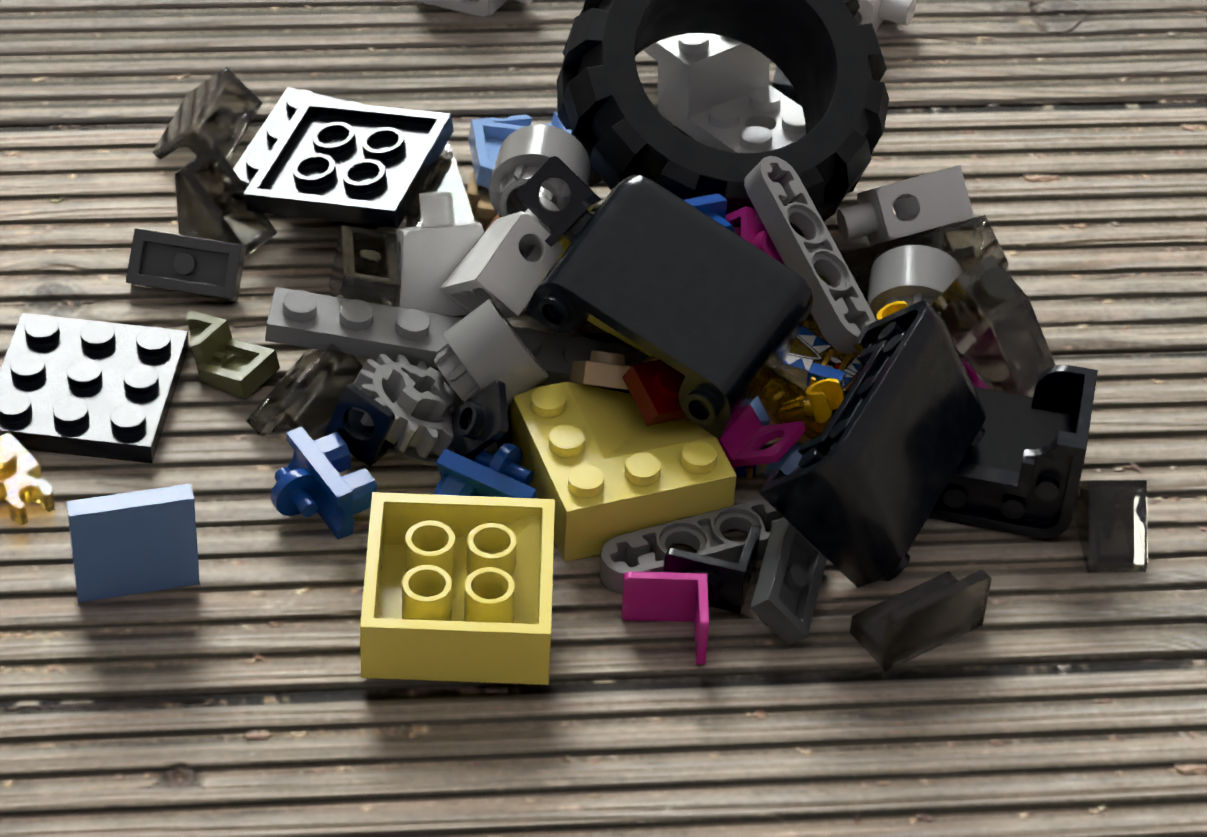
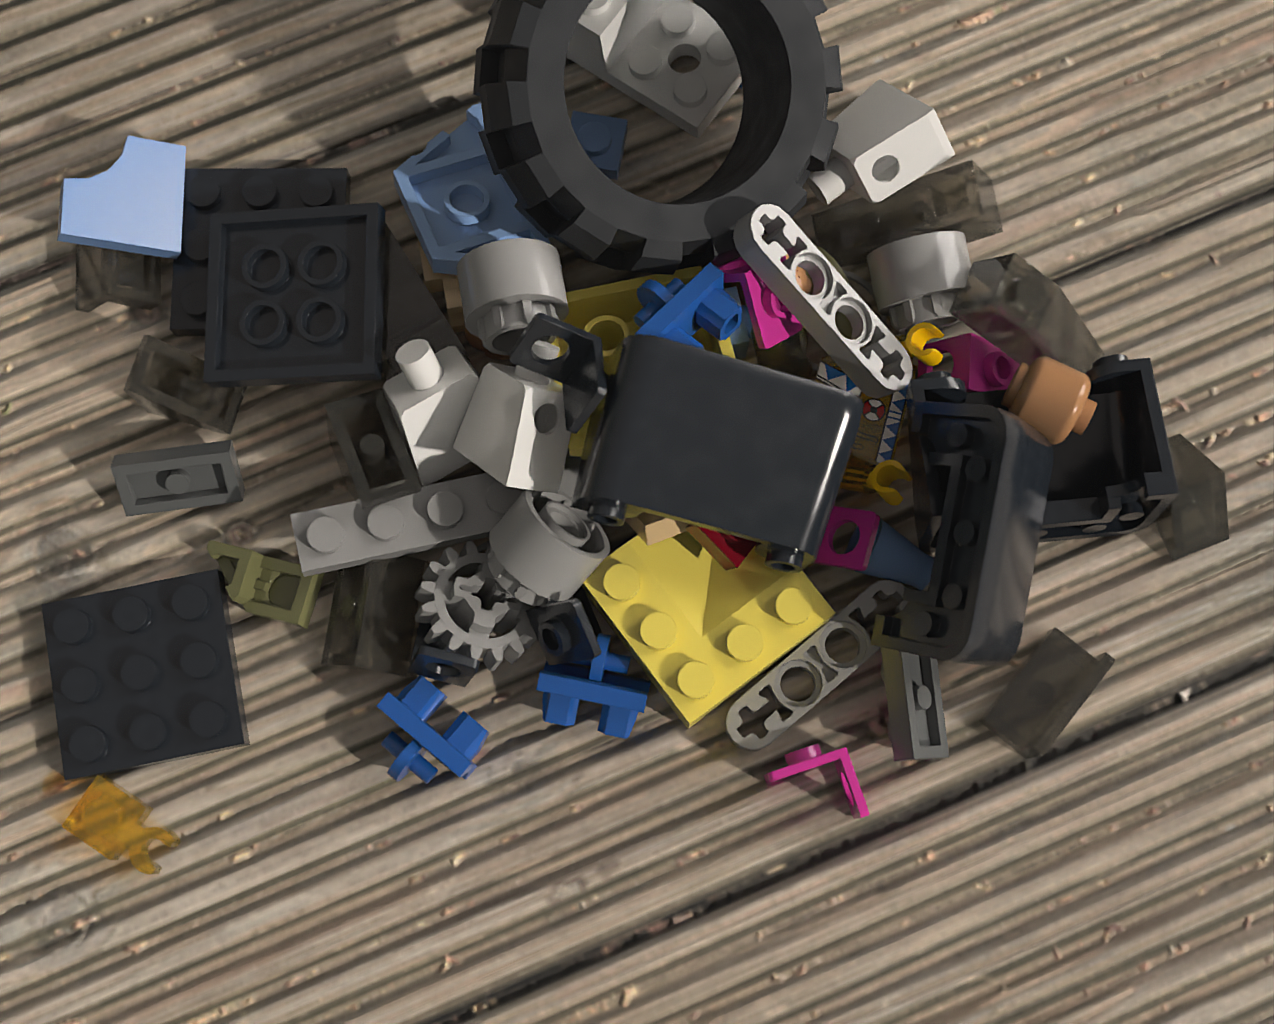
camera: 15 degrees left, 35 degrees up
(133, 542) = (283, 913): medium blue tile -> none
(237, 81) = (131, 204): none -> tile
(458, 589) = (615, 844): light yellow slope -> none
(726, 580) = (845, 734): black bracket -> none
(820, 372) = (878, 441): blue piece -> none
(1001, 381) = (1050, 398): none -> medium nougat head

